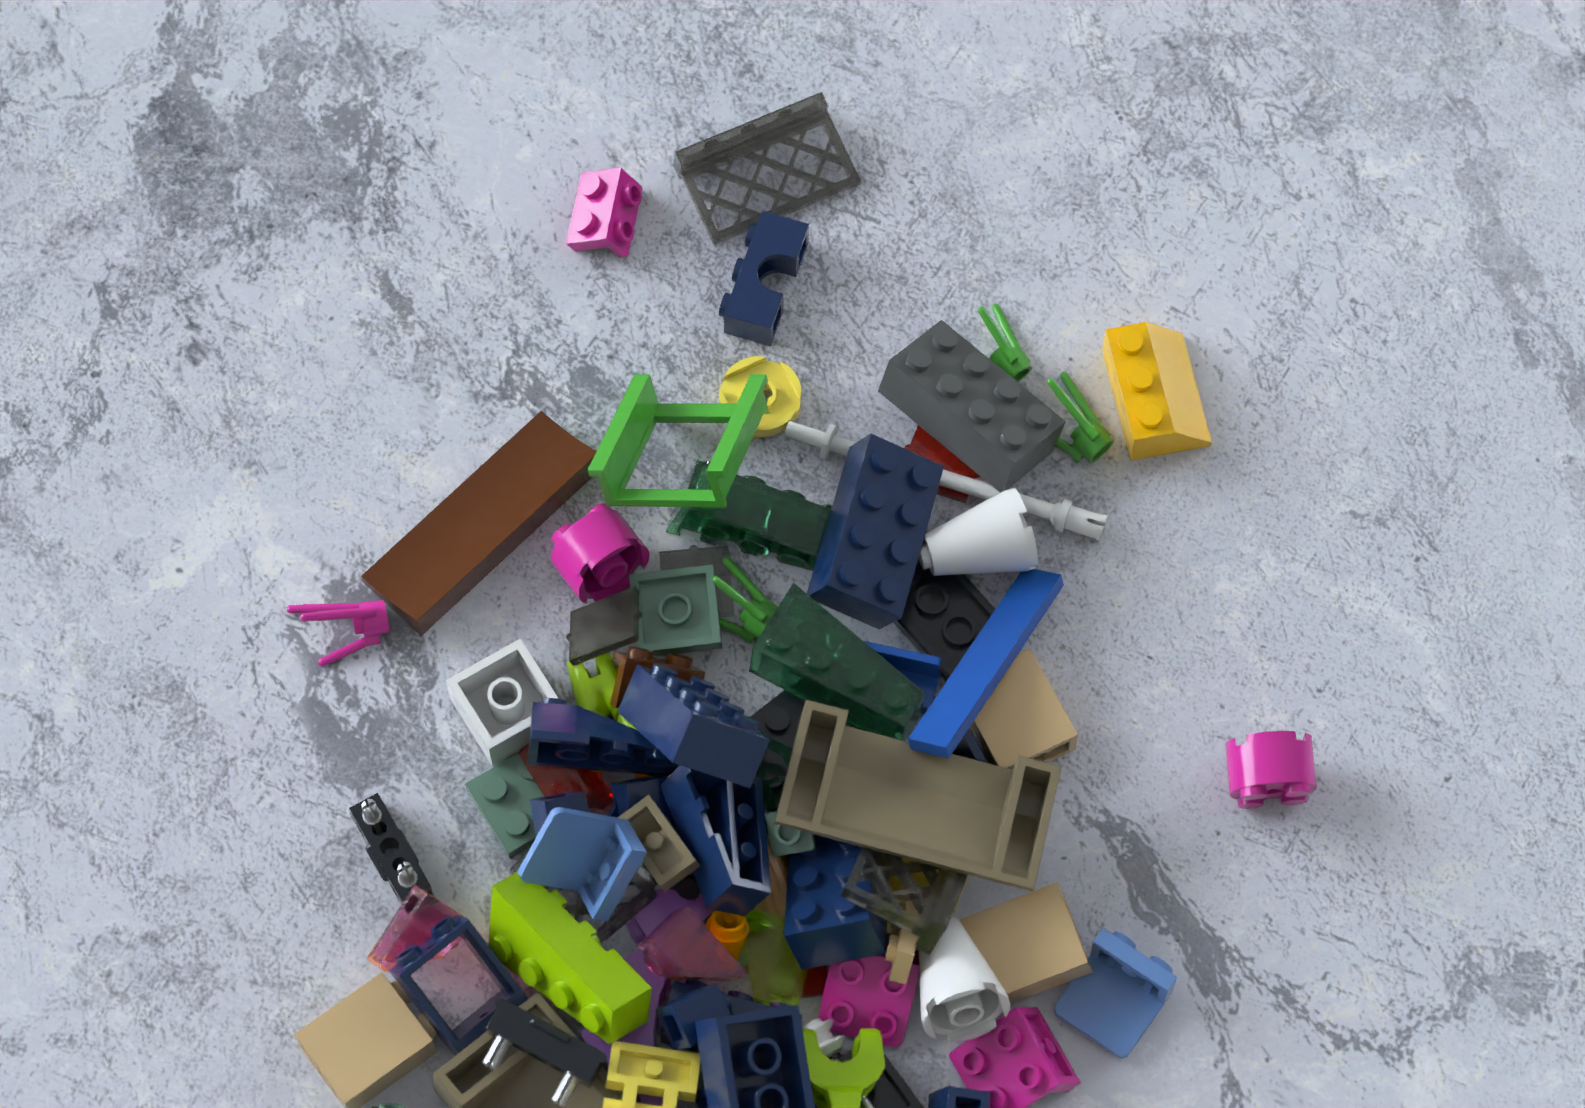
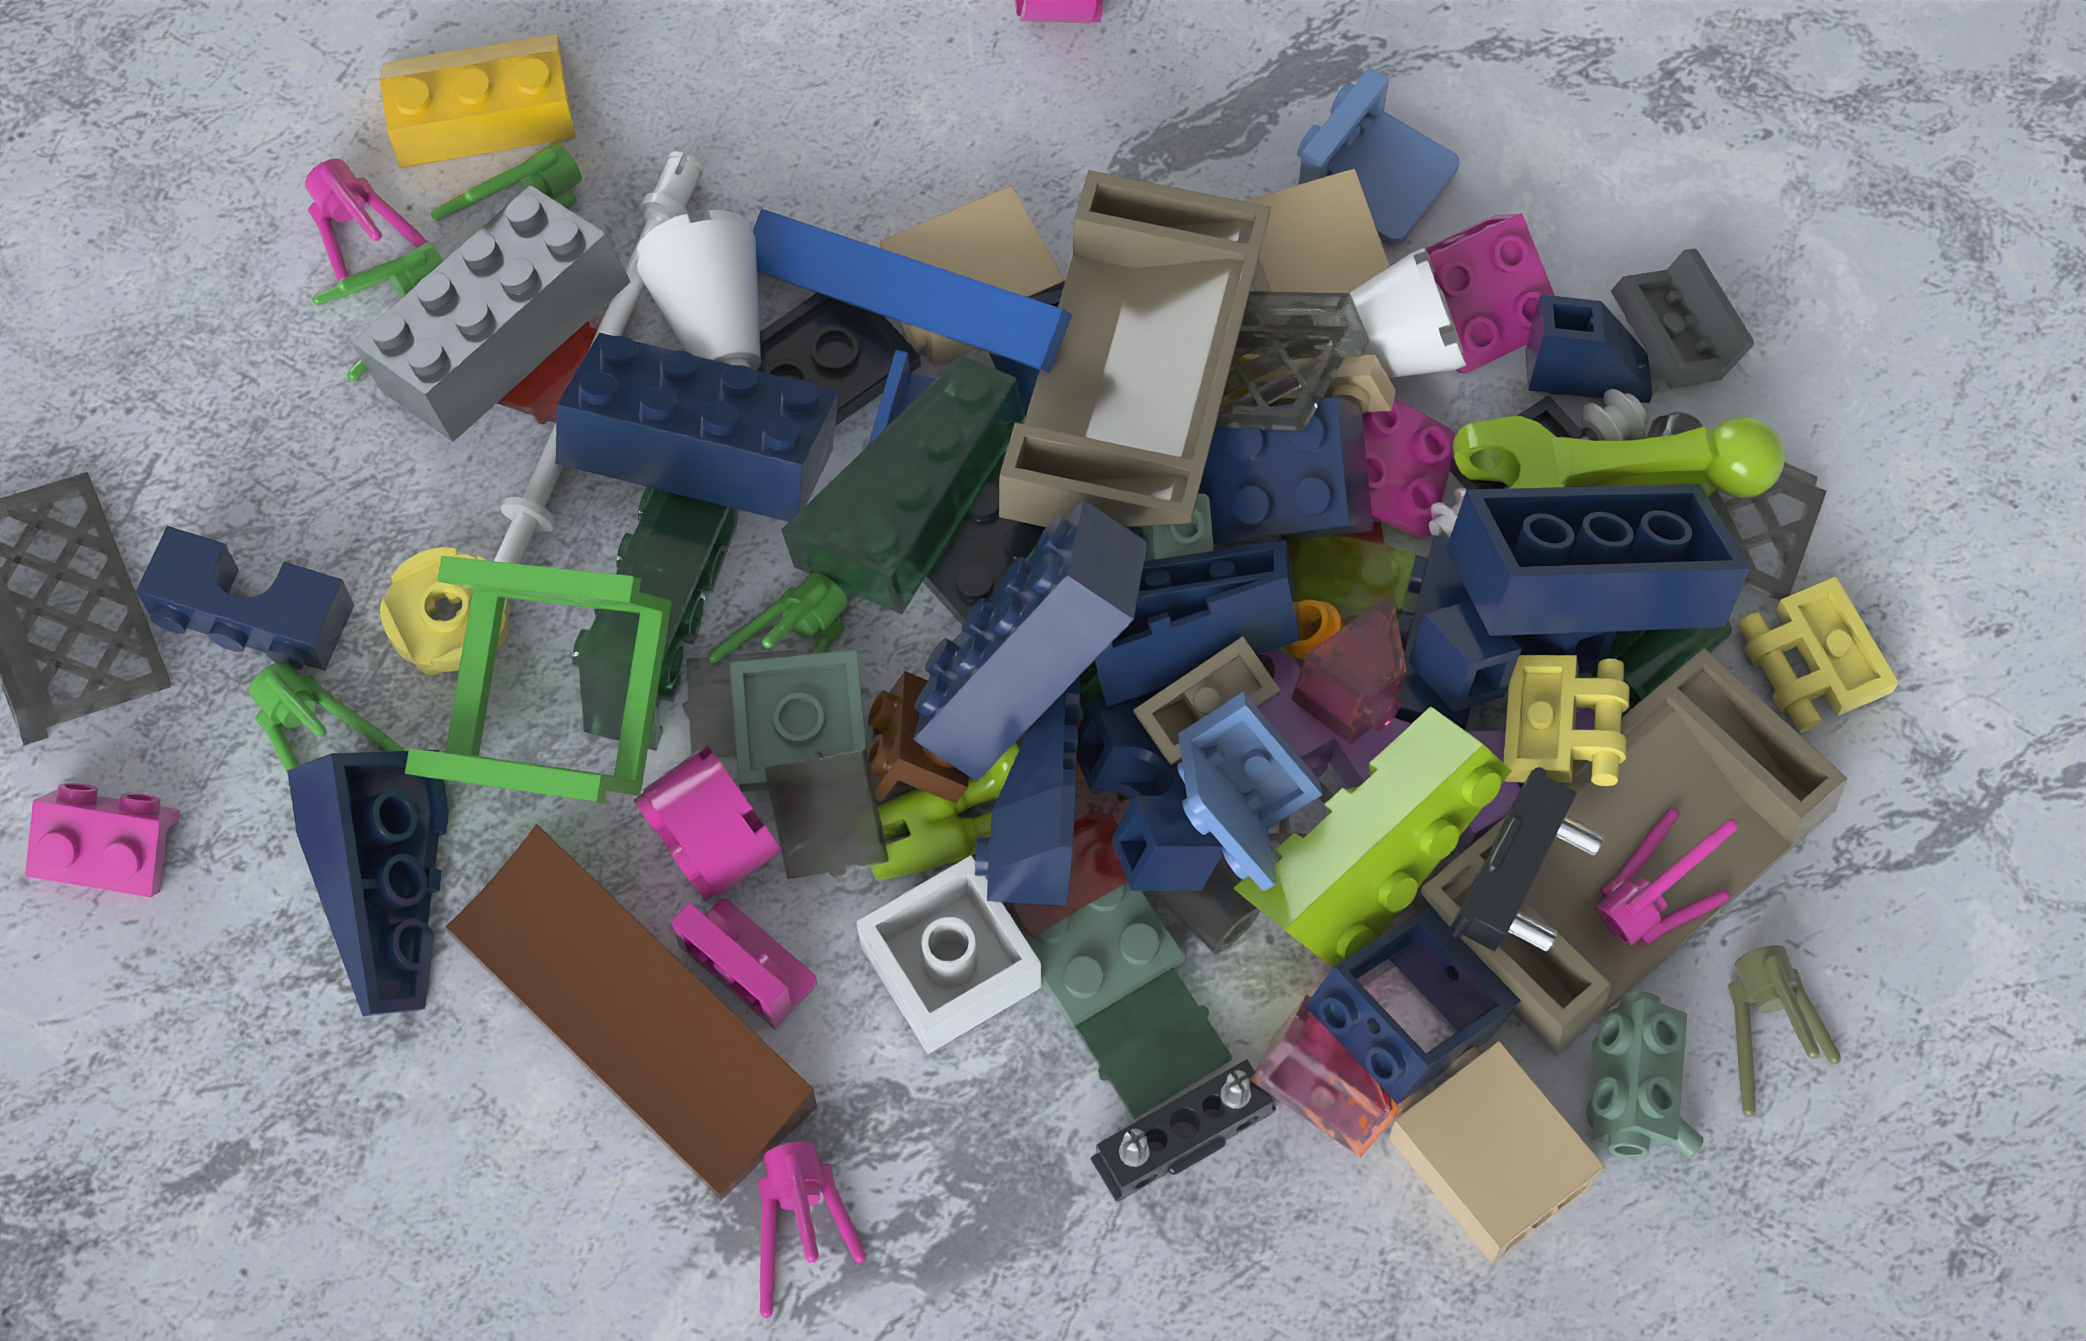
camera: 90 degrees left, 0 degrees up
(454, 837) = (1153, 1043): none -> clear green piece
(510, 582) = (744, 959): none -> dark pink bracket
(575, 367) = (373, 863): none -> dark blue wedge
(695, 308) = (290, 701): none -> bright green plant
(1068, 311) = (343, 198): none -> dark pink plant

